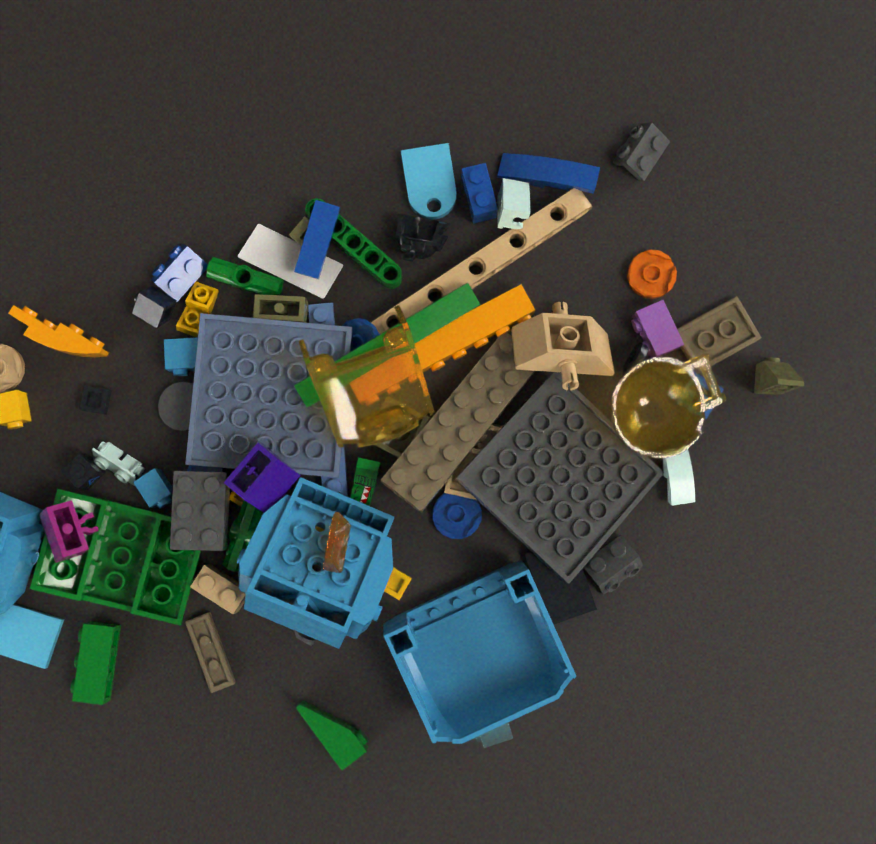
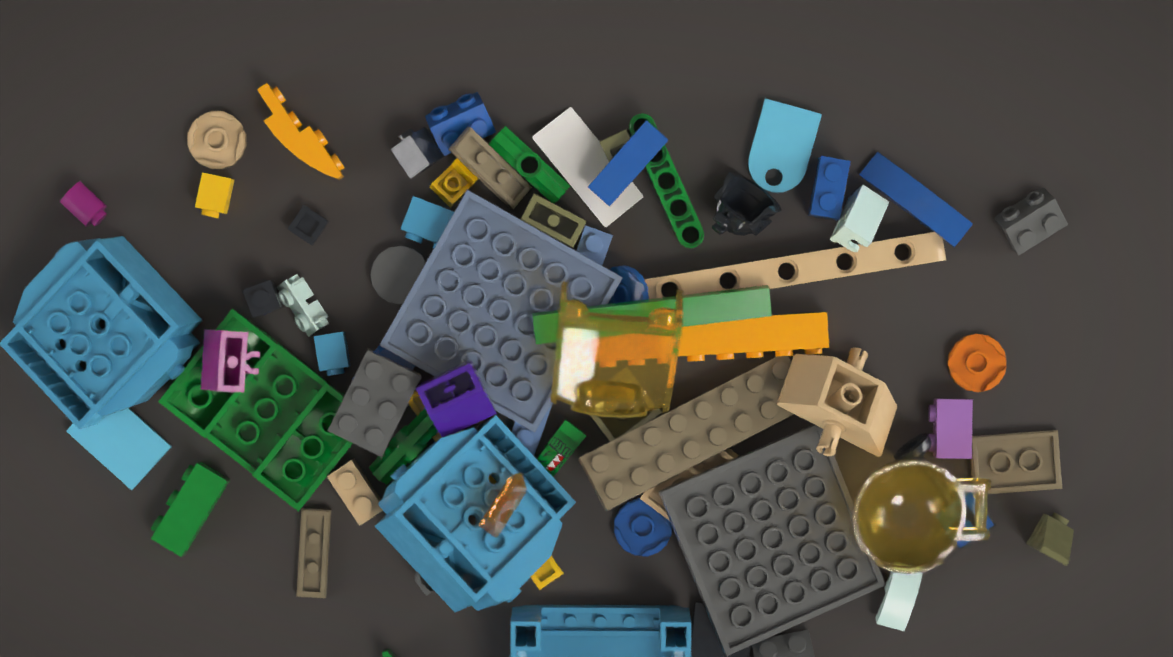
camera: 25 degrees right, 5 degrees up
(214, 293) = (490, 168): none -> dark tan tile

